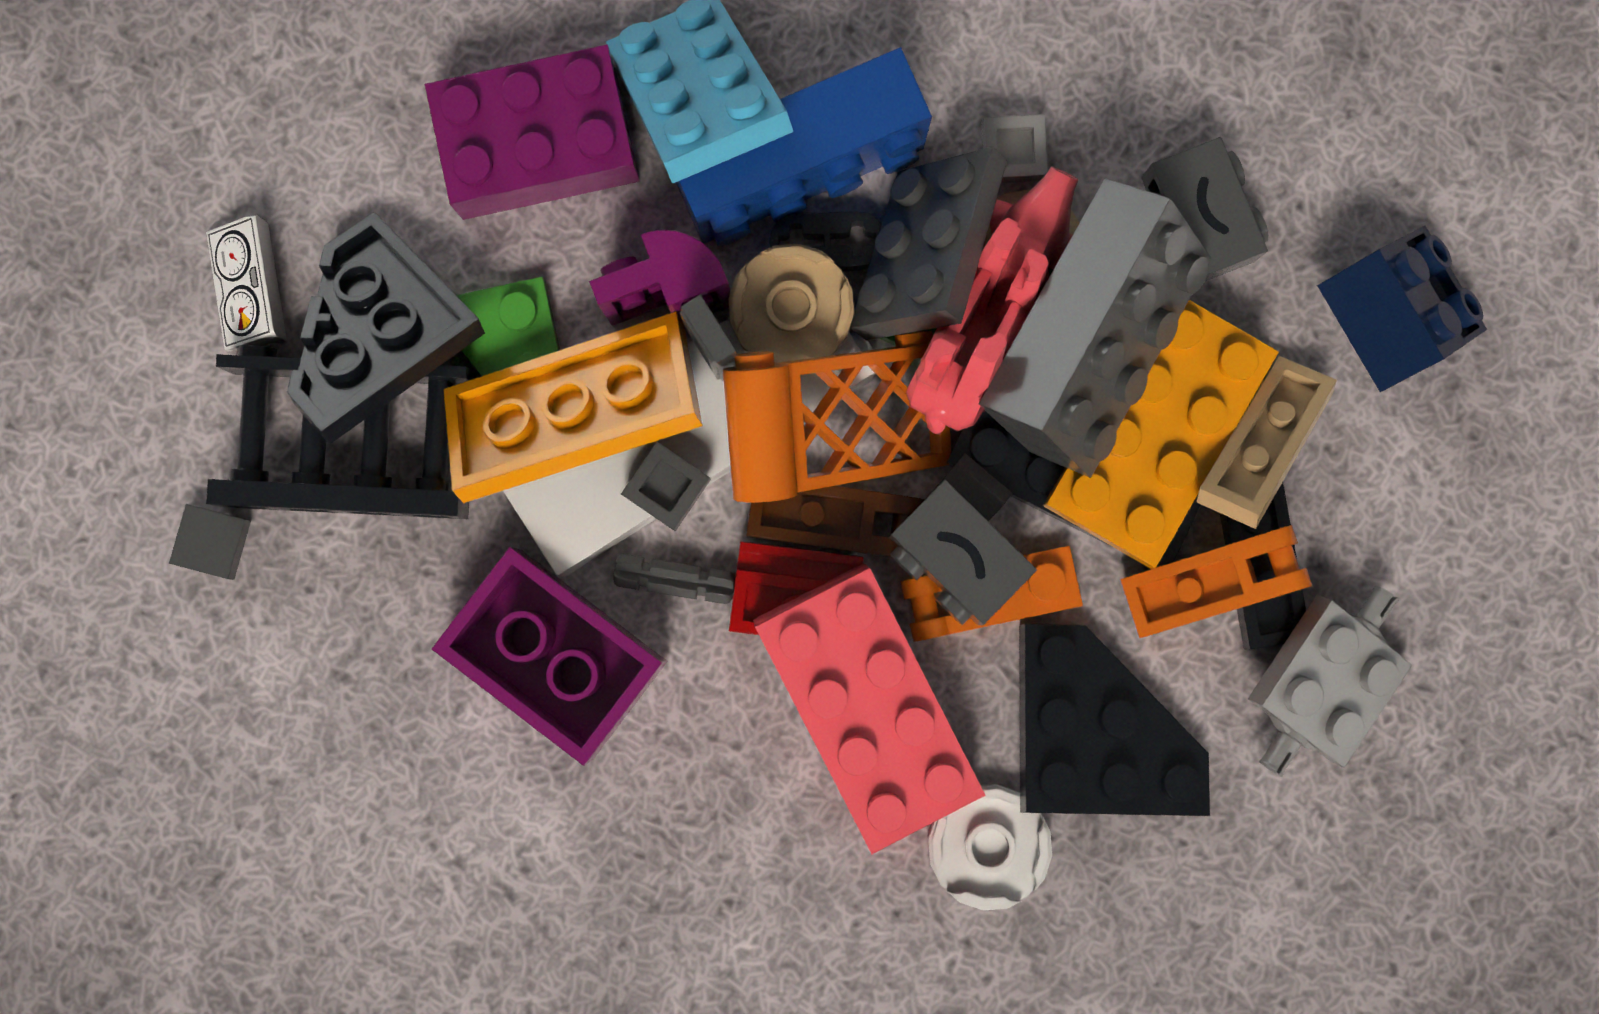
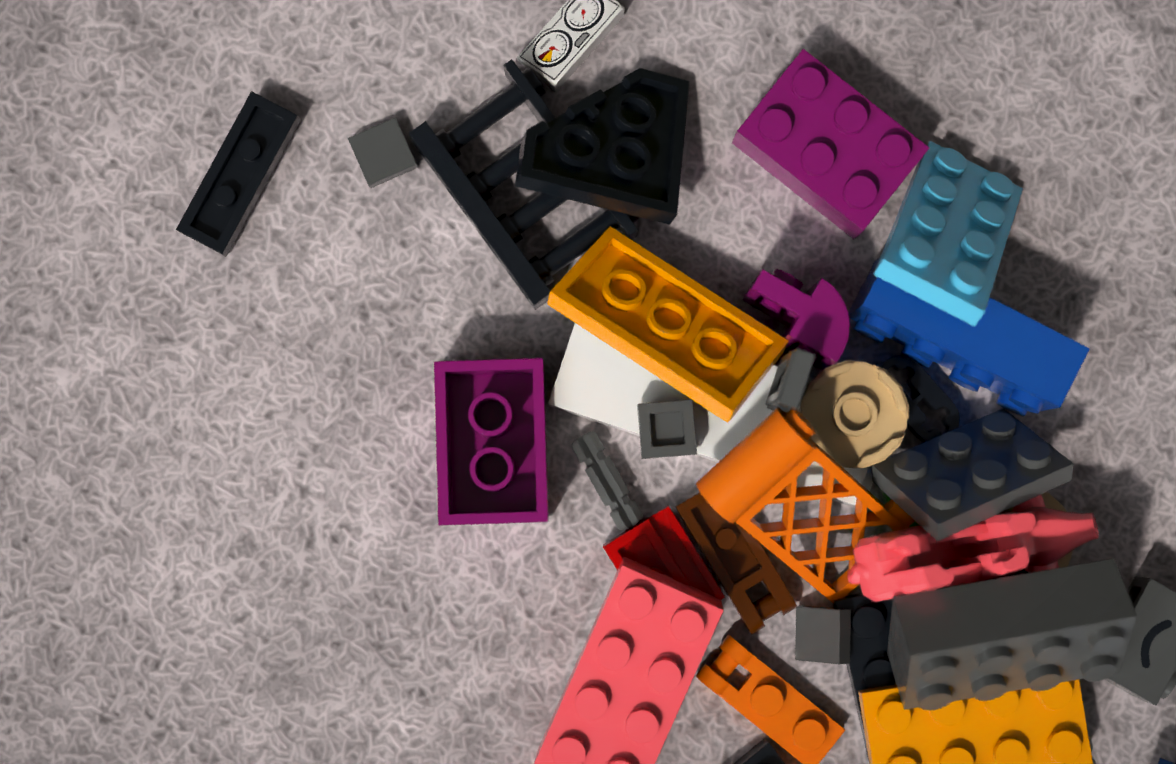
camera: 45 degrees right, 0 degrees up
(118, 689) = (238, 174): none -> black plate
(515, 325) = (691, 238): bright green wing -> none
(960, 555) = (779, 663): dark grey brick -> none
(1021, 143) = (1091, 476): light grey plate -> none

